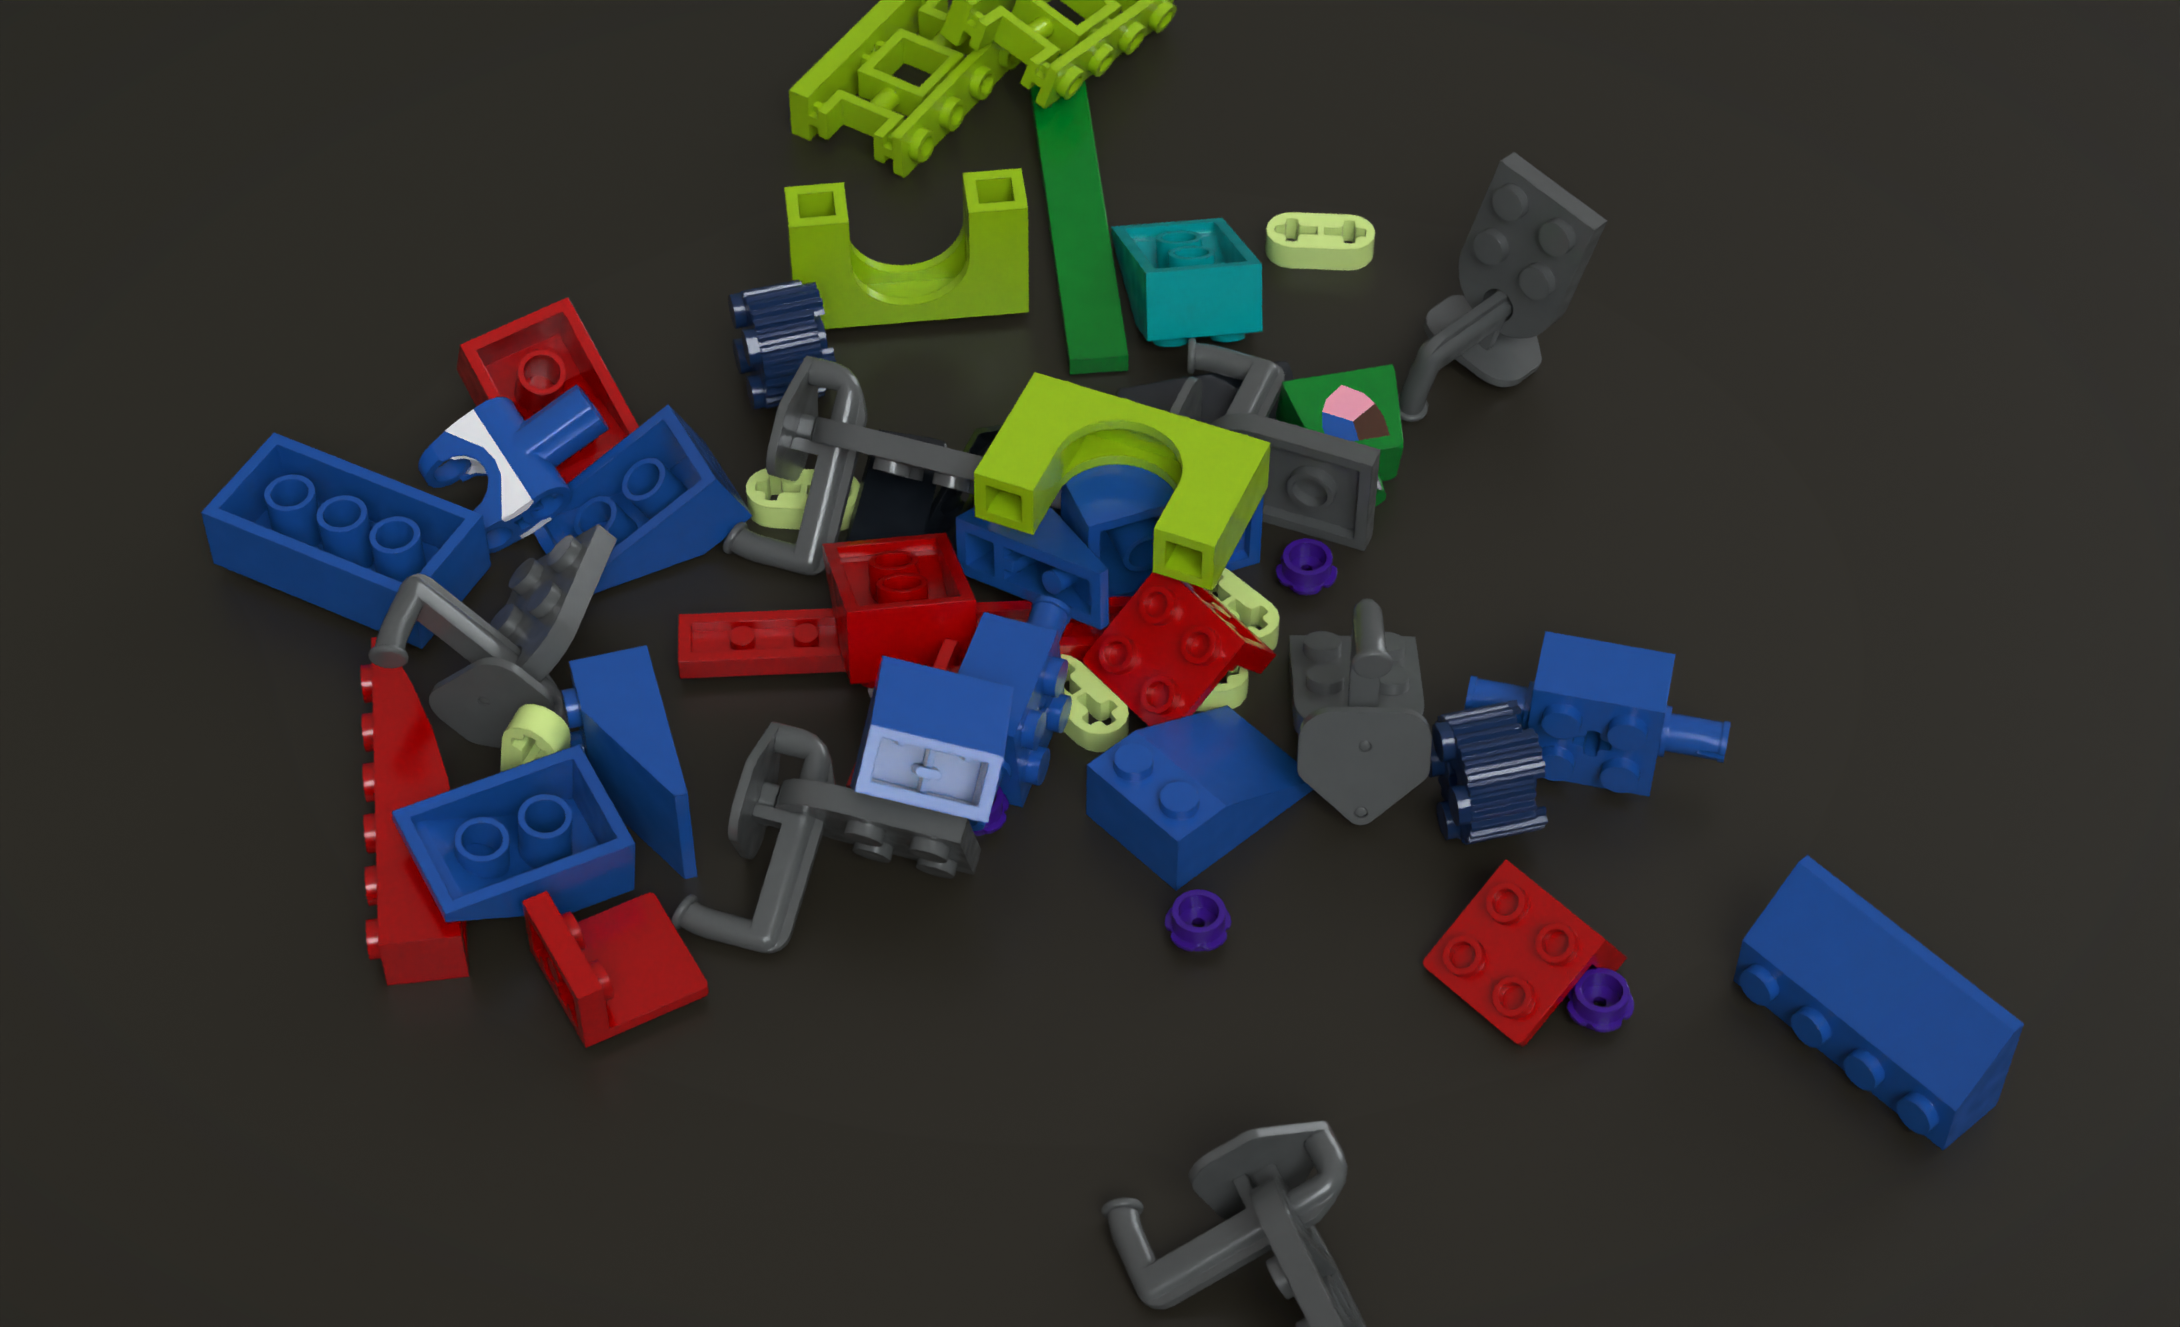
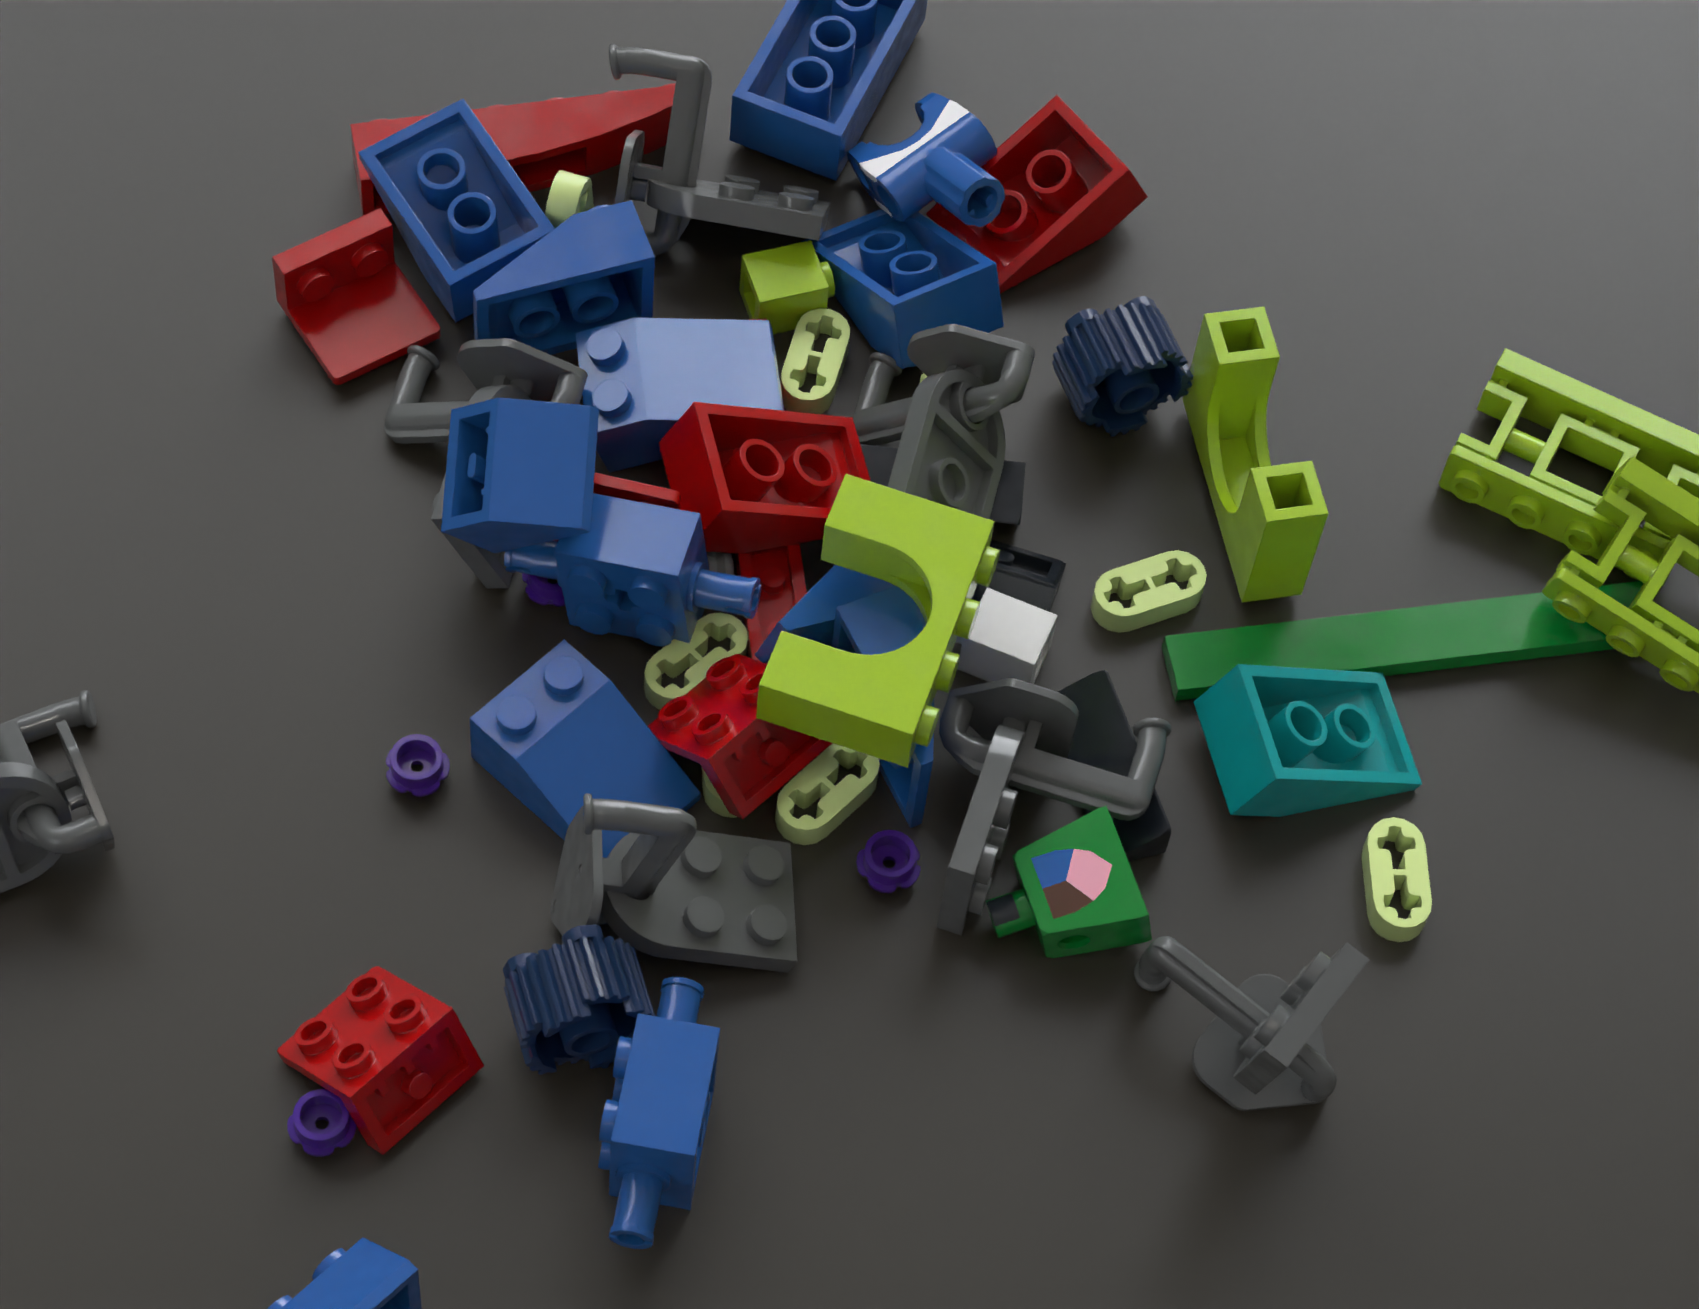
camera: 80 degrees right, 10 degrees up
(639, 602) = (785, 284): none -> lime brick
(721, 587) = (826, 365): none -> yellowish green beam
(764, 663) = (655, 368): none -> slope
(1005, 373) = (1146, 586): none -> yellowish green beam

